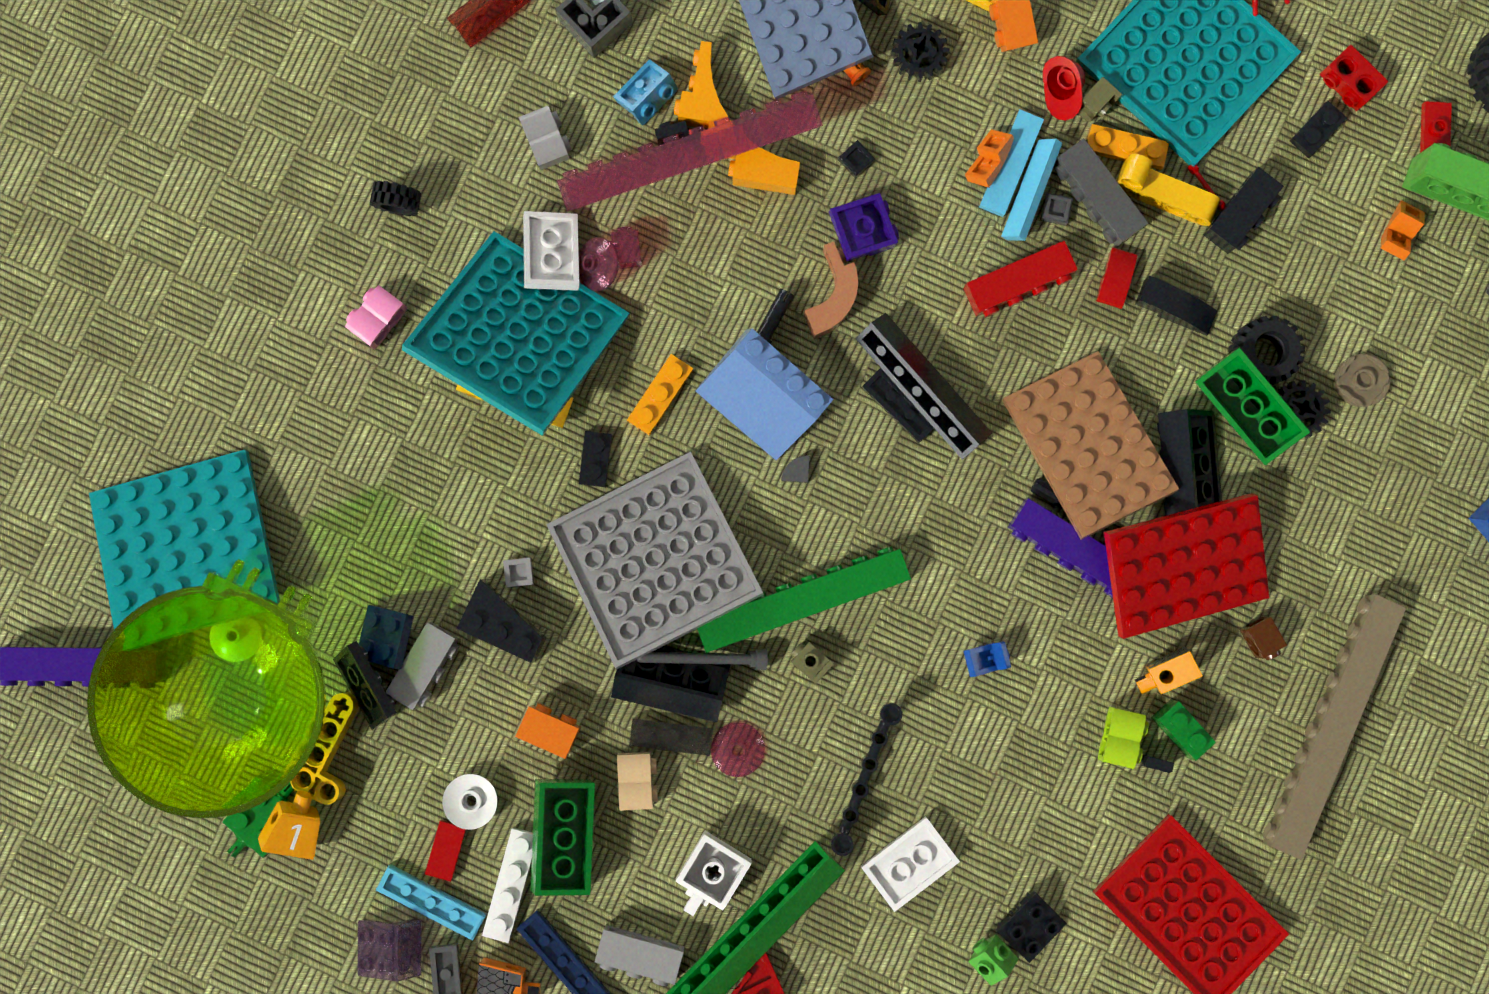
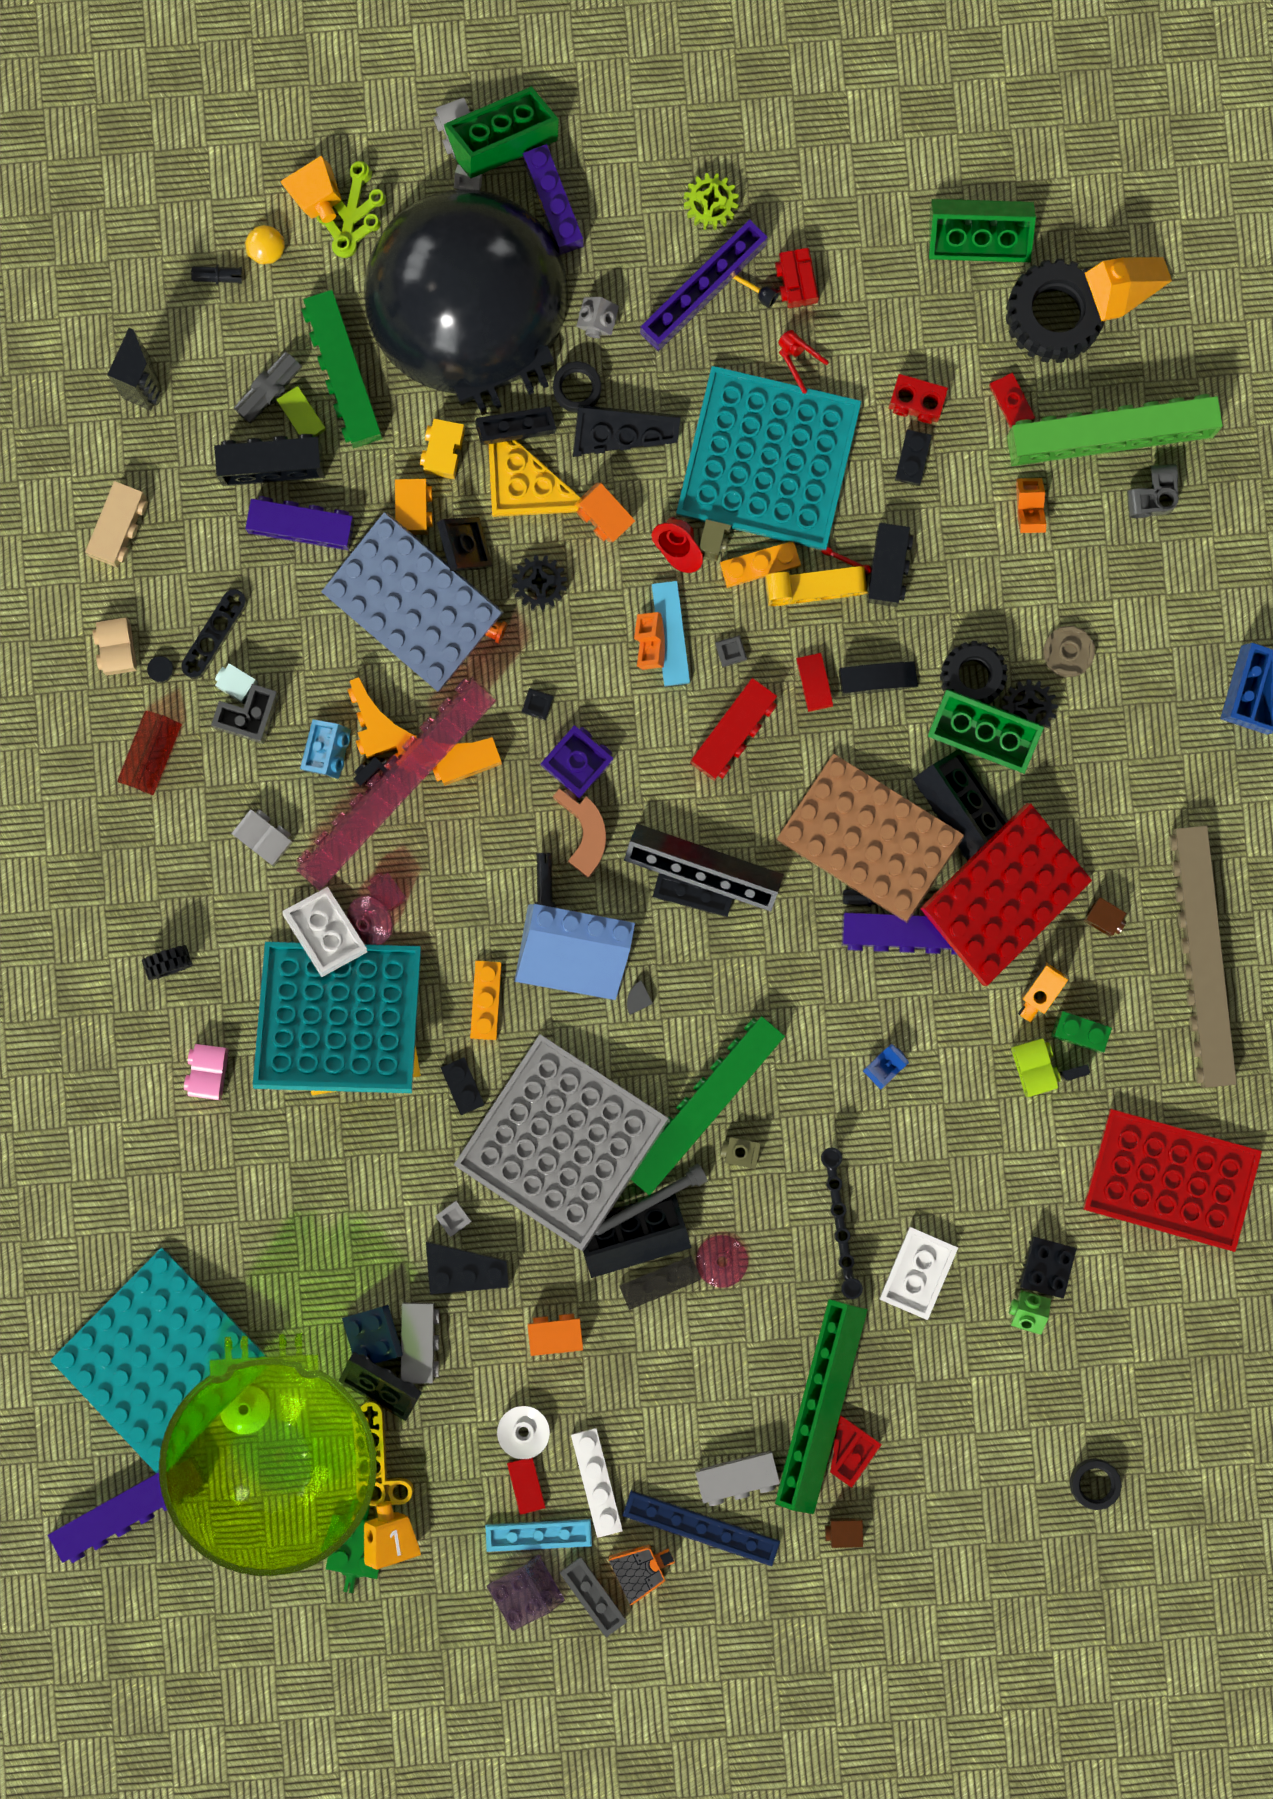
camera: 30 degrees left, 0 degrees up
(562, 837) = (617, 1416): green brick -> none
(635, 781) = (651, 1335): tan brick -> none
(716, 888) = (770, 1385): white hinge -> none
(1031, 189) = (700, 648): medium azure tile -> none
(1099, 193) = (759, 618): dark grey brick -> none

